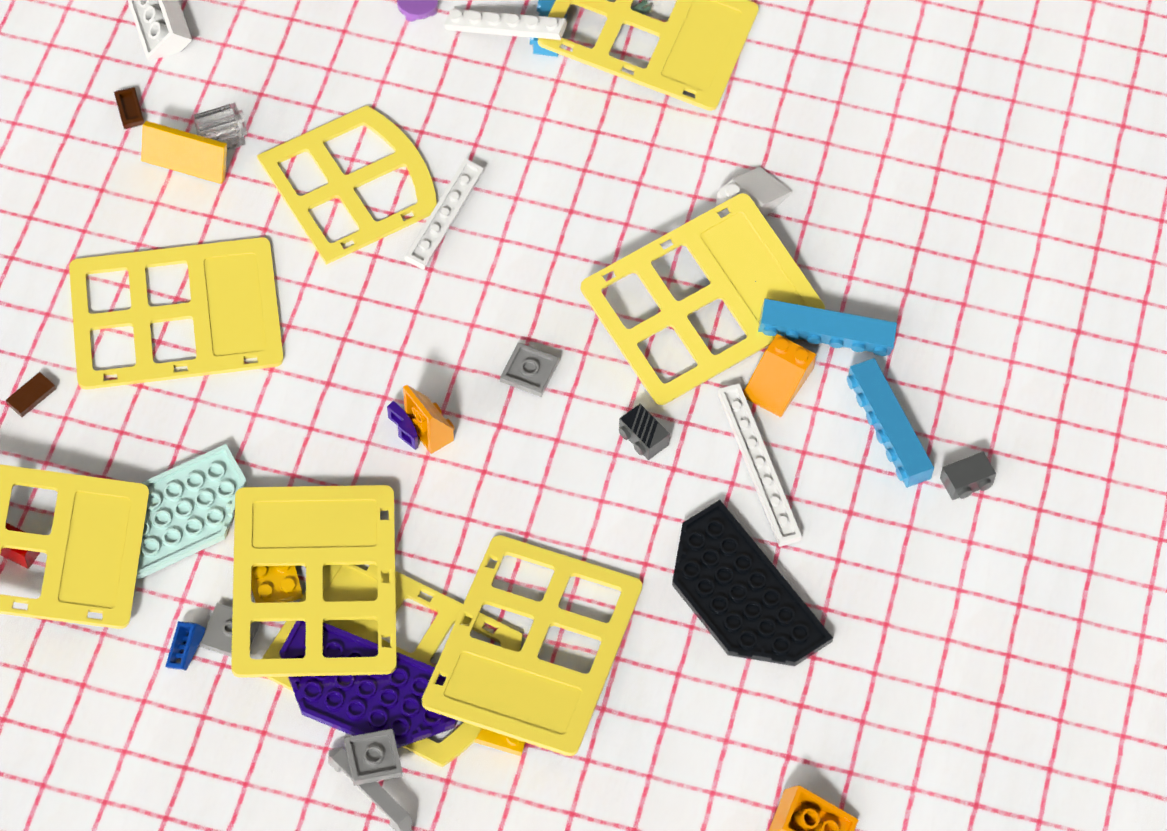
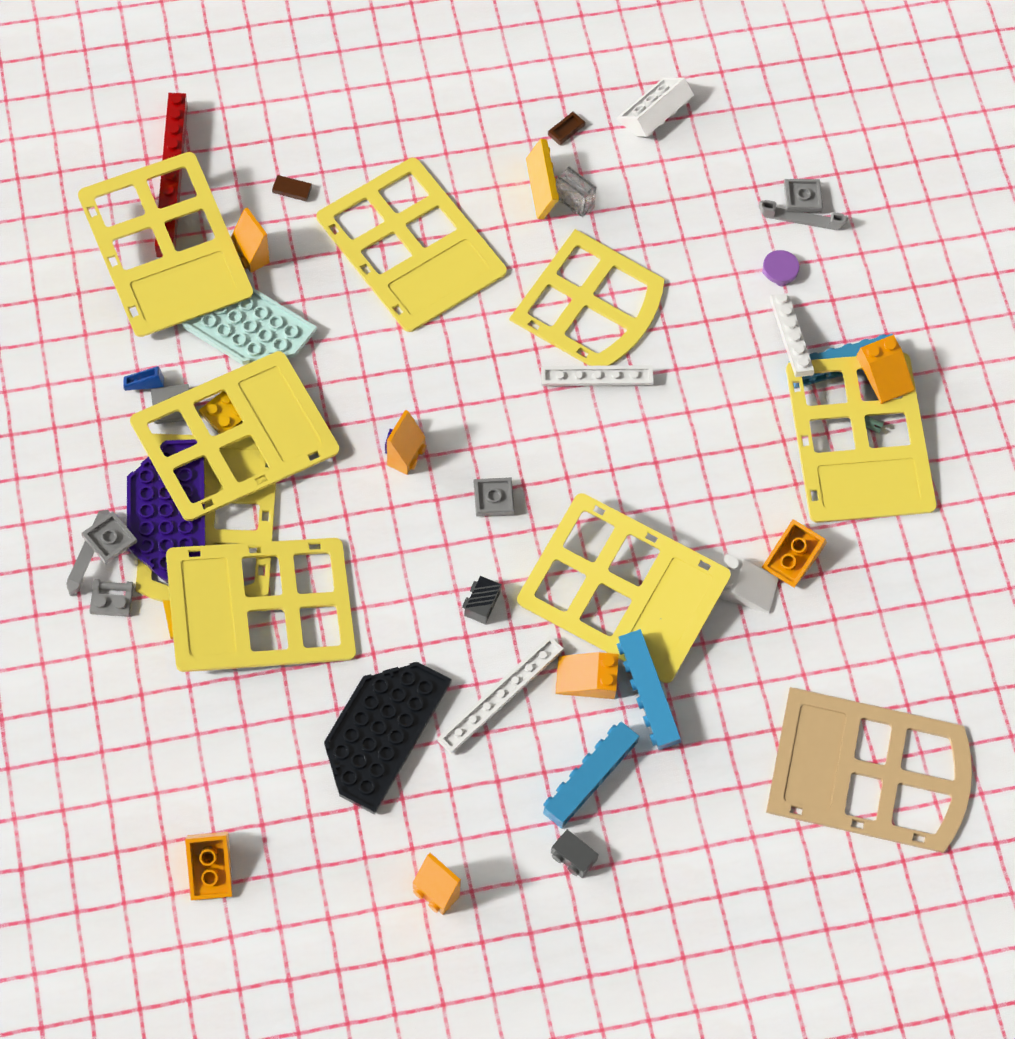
camera: 60 degrees right, 5 degrees up
(83, 451) = (250, 242): none -> light orange slope
(444, 799) = (108, 603): none -> light grey plate
(744, 137) = (794, 553): none -> light orange slope
(948, 609) = (436, 885): none -> light orange slope
(971, 225) = (818, 760): none -> tan door

